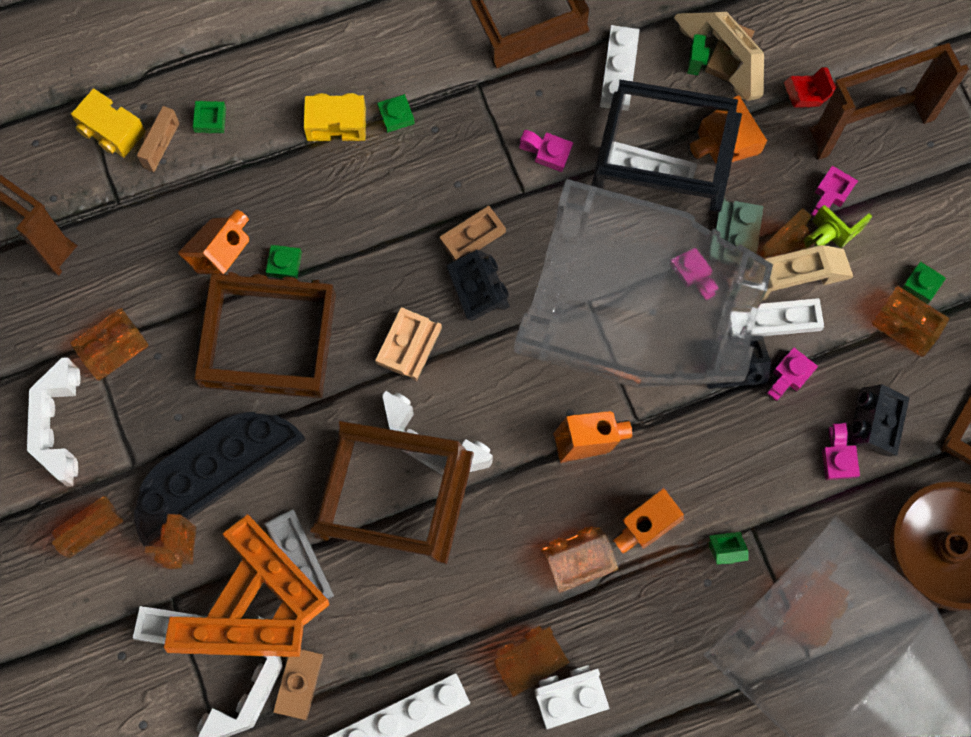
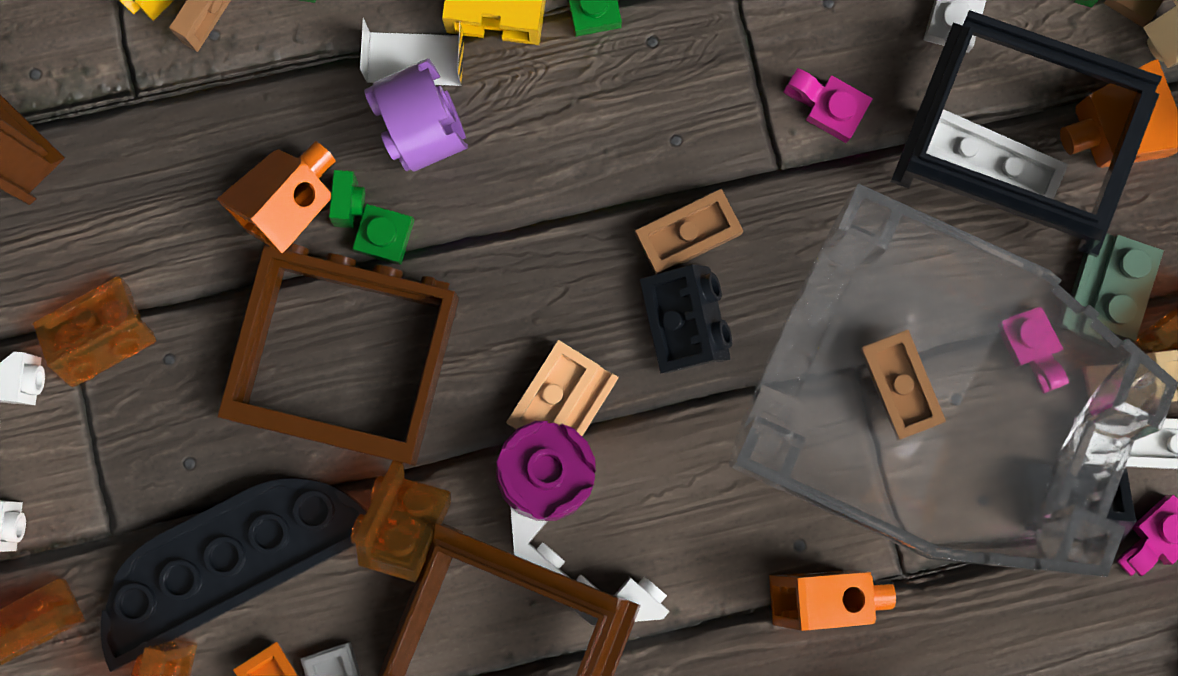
camera: 10 degrees right, 10 degrees up
(258, 243) = (346, 199): none -> green plate
(288, 158) = (391, 52): none -> white sticker
(295, 187) = (417, 115): none -> medium lavender brick
(316, 427) = (399, 524): none -> clear orange bracket
(403, 382) = (545, 471): none -> magenta tile
(616, 303) = (902, 385): none -> medium nougat plate

